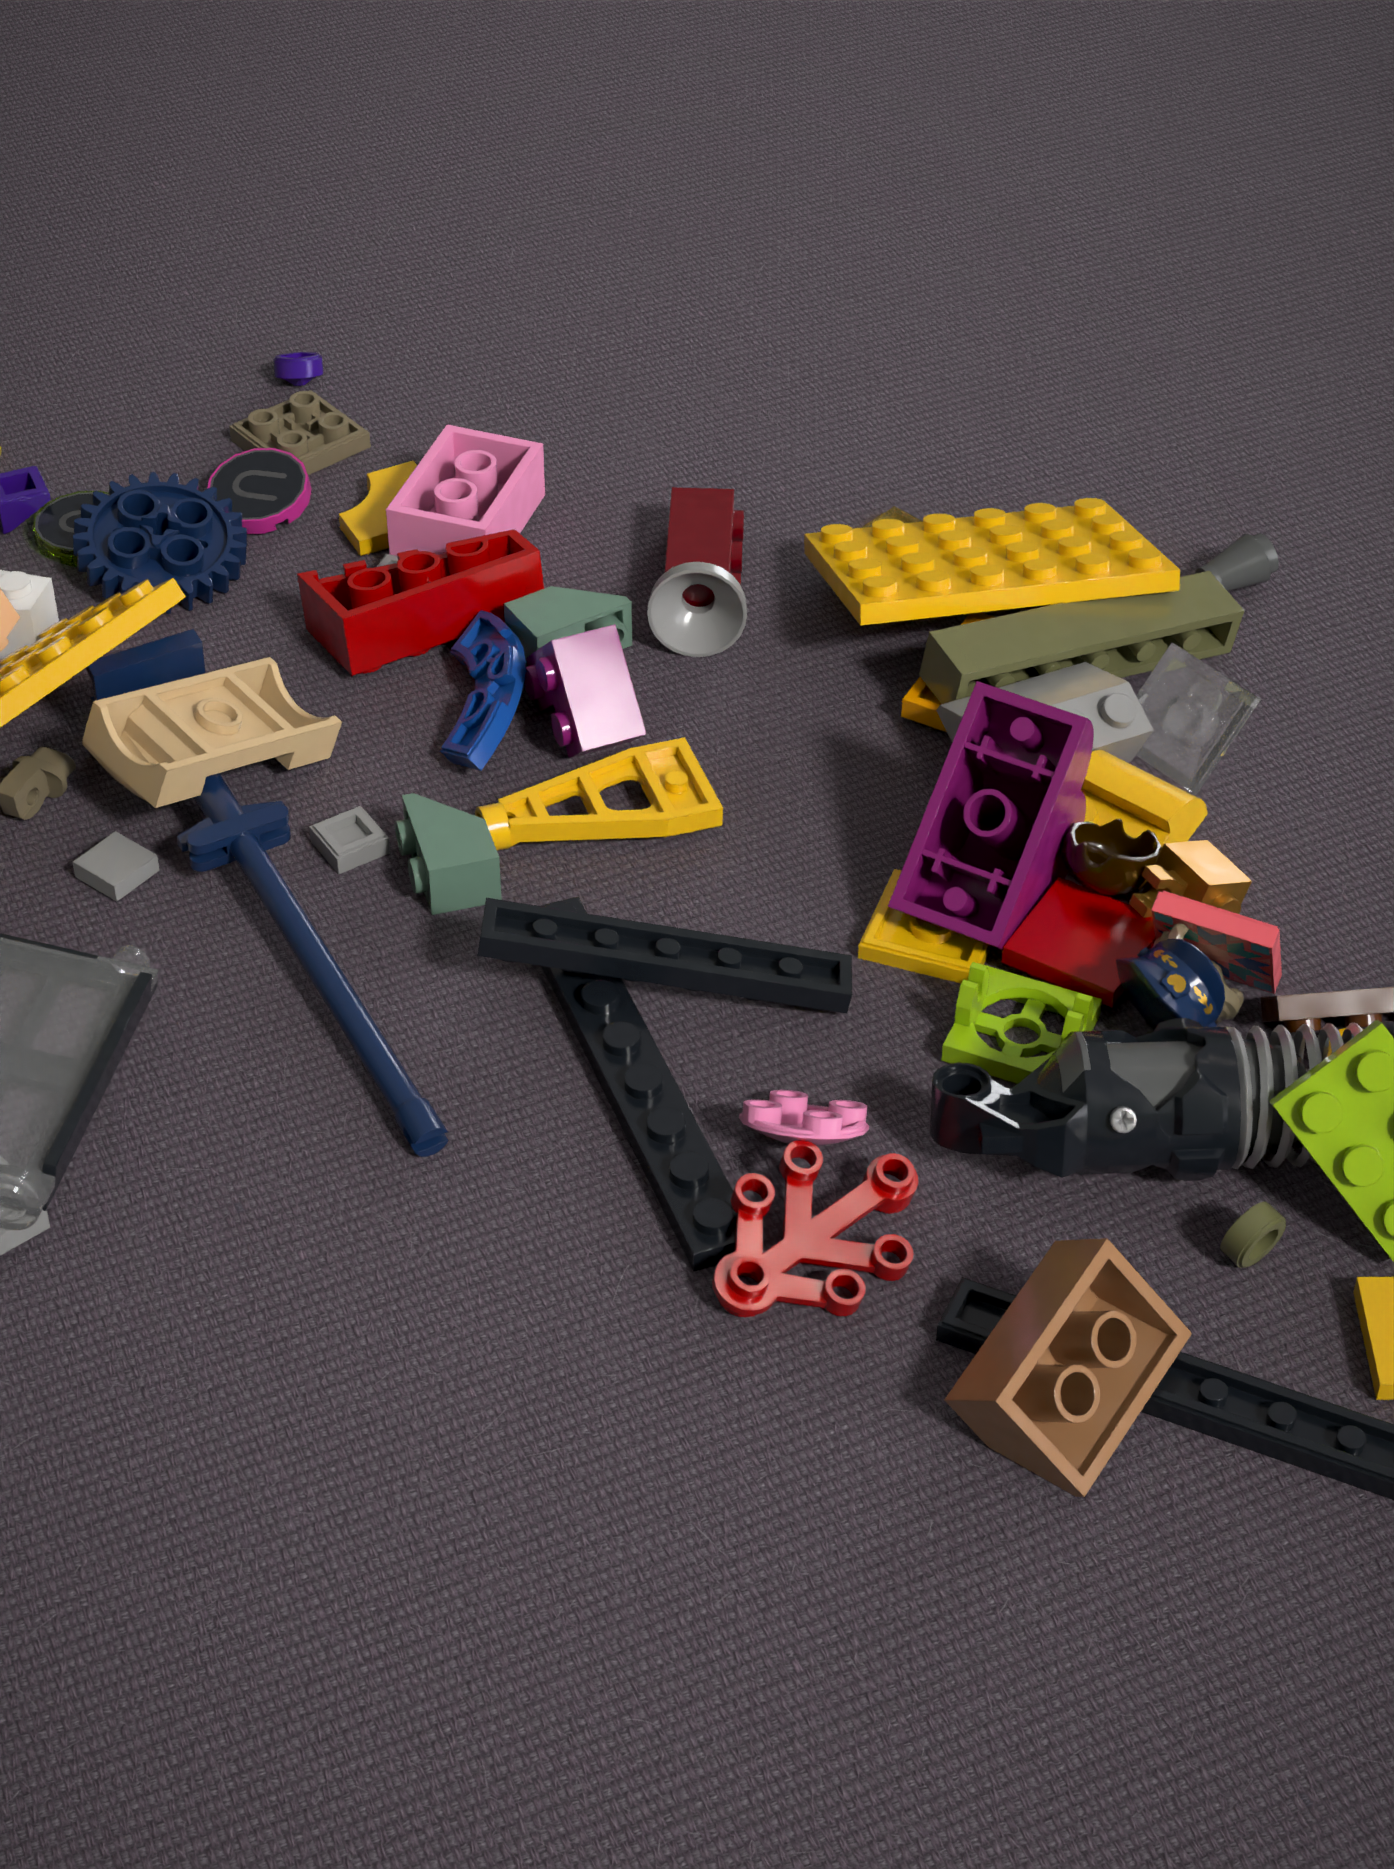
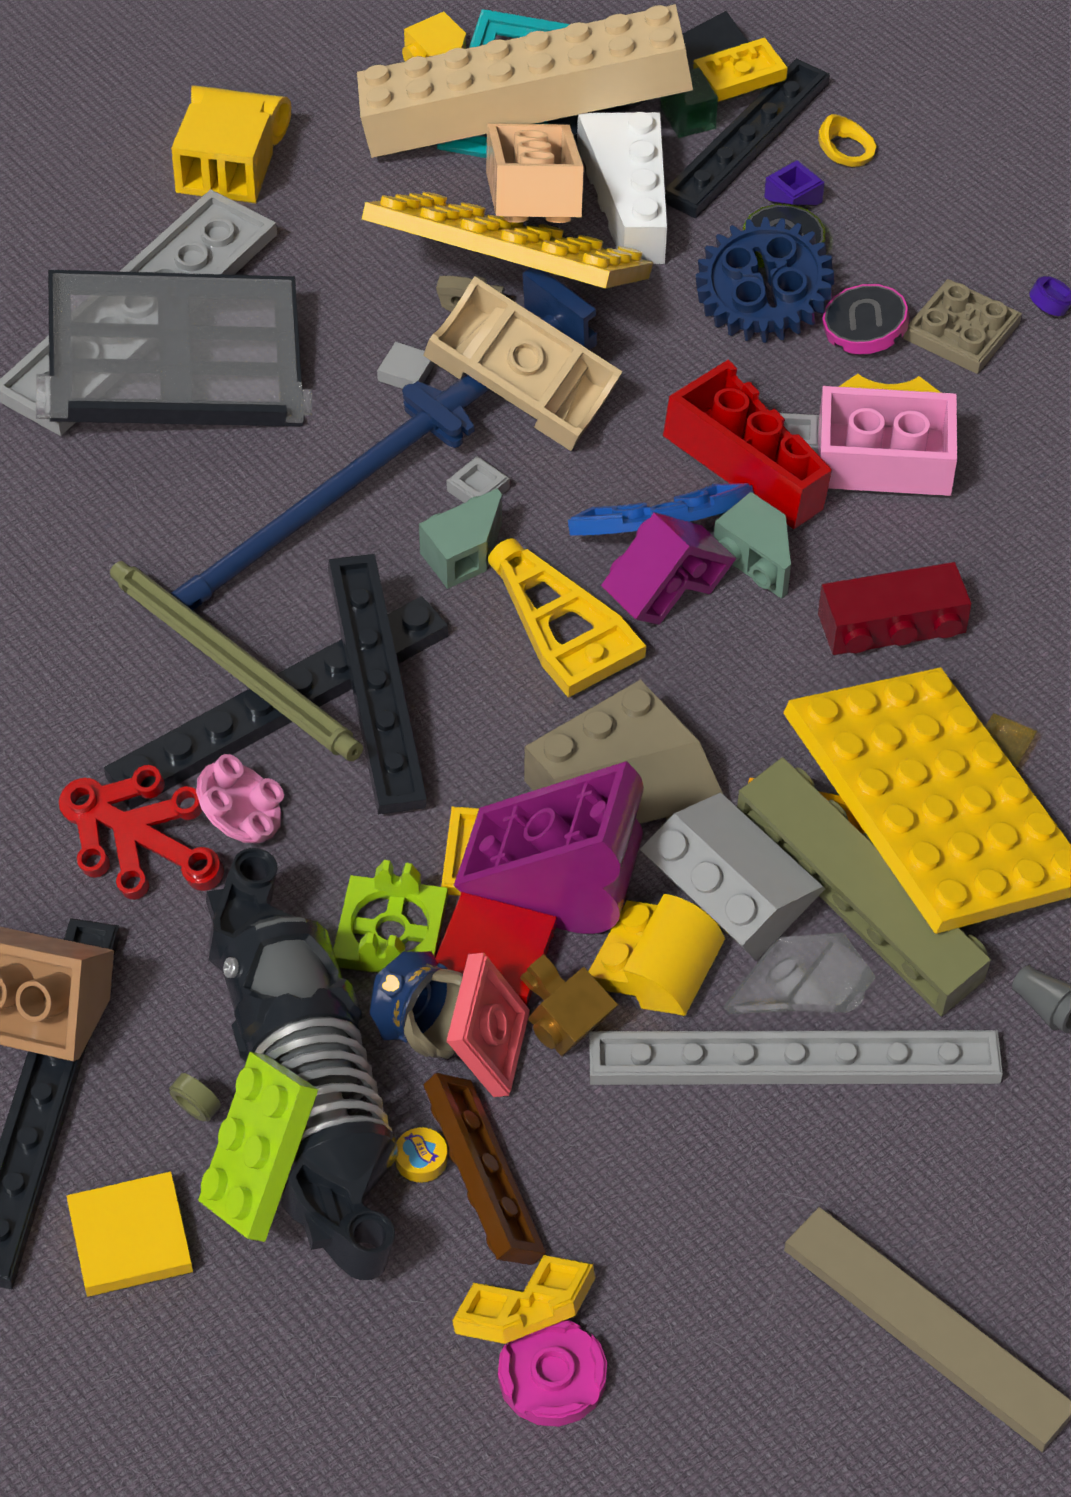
camera: 75 degrees right, 10 degrees up
(566, 1087) = (237, 661): none -> olive piece
(697, 629) = (803, 614): light grey piece -> none
(846, 790) = (631, 729): none -> dark tan wedge
(1107, 857) = (571, 934): dark brown hair -> none
(1270, 754) = (794, 1057): none -> light grey tile

